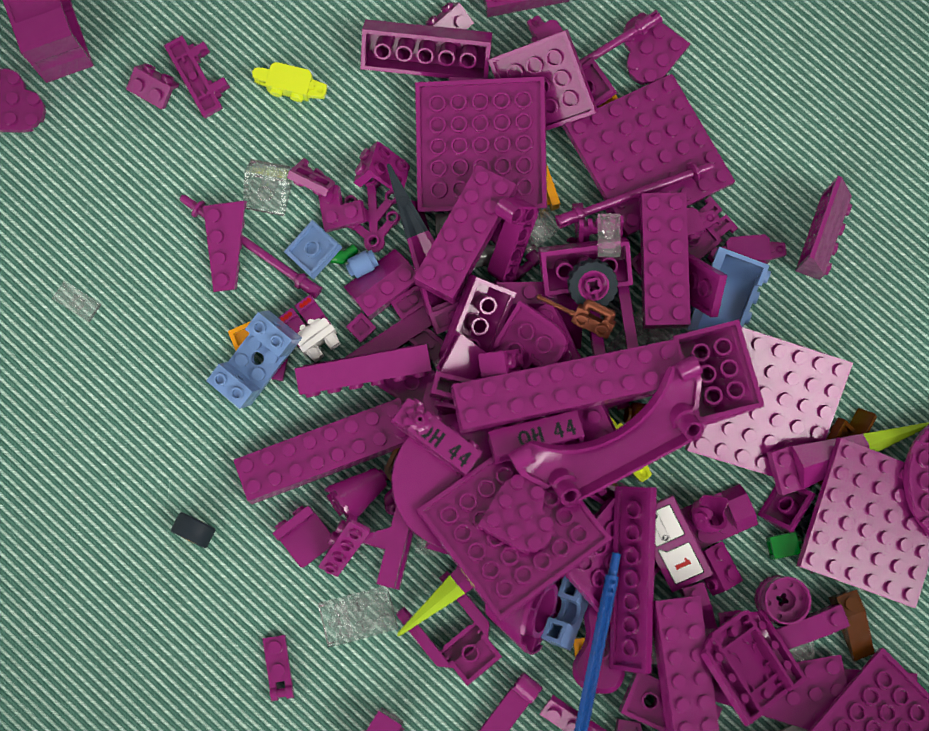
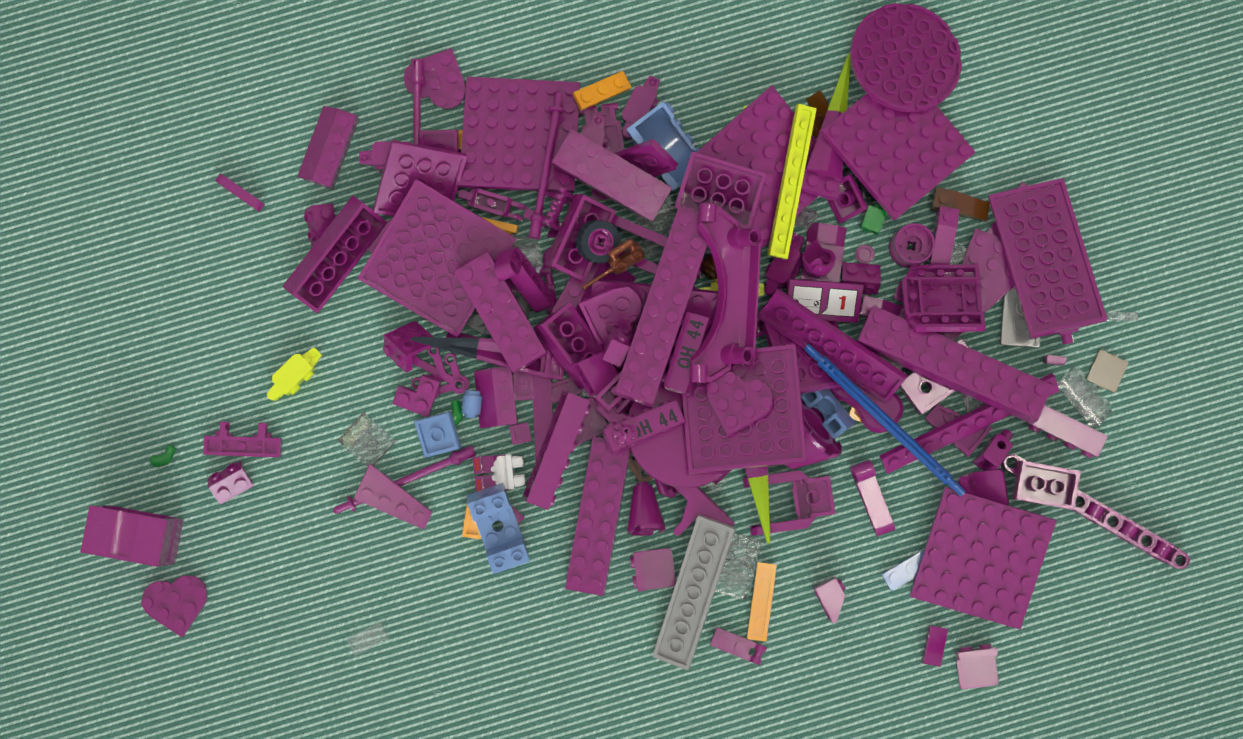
camera: 55 degrees left, 5 degrees up
(140, 14) = (163, 459): none -> green arm
(193, 530) = (598, 650): black wheel -> none
(304, 589) = (694, 591): none -> light grey plate
(314, 180) = (382, 402): magenta wing -> none
(336, 664) = (761, 601): none -> light orange plate
(344, 544) = (676, 538): magenta bracket -> none
(566, 167) = (491, 203): none -> magenta hinge
(608, 235) = (570, 207): clear plate -> none
(685, 484) = (782, 269): none -> magenta hinge
(740, 206) = (601, 90): none -> light orange plate
(742, 477) = (806, 218): none -> clear tile
(744, 558) = (864, 254): none -> magenta plate
(770, 439) = (791, 181): none -> neon yellow plate
(825, 230) = (659, 40): magenta slope -> none

